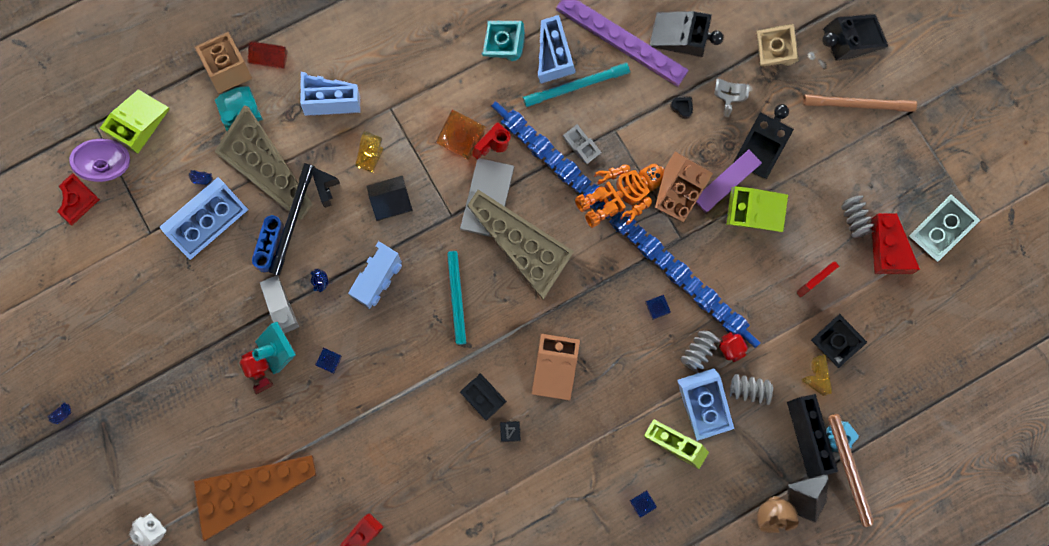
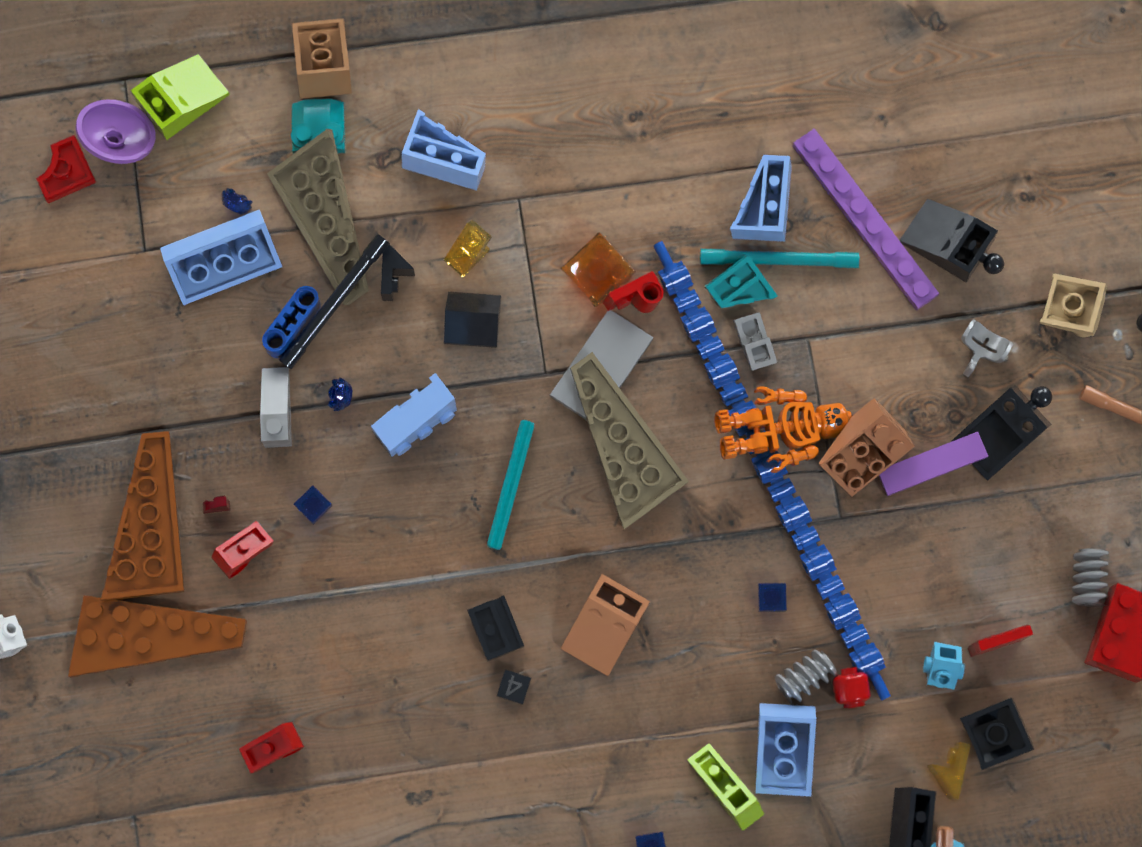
camera: 20 degrees right, 0 degrees up
(223, 425) = (148, 539): none -> dark orange wing
(253, 368) = (215, 473): red head -> none
(267, 54) = (383, 68): clear red slope -> none
(274, 347) = (249, 462): teal tile -> none
(289, 410) = (240, 549): none -> plate
(504, 39) = (705, 162): teal slope -> none
(558, 111) = (740, 285): none -> teal wing
(682, 106) = (912, 339): black tile -> none
(751, 388) = (854, 753): light grey piece -> none
(757, 209) = (957, 517): lime slope -> none
(787, 309) = (944, 666): none -> medium azure brick

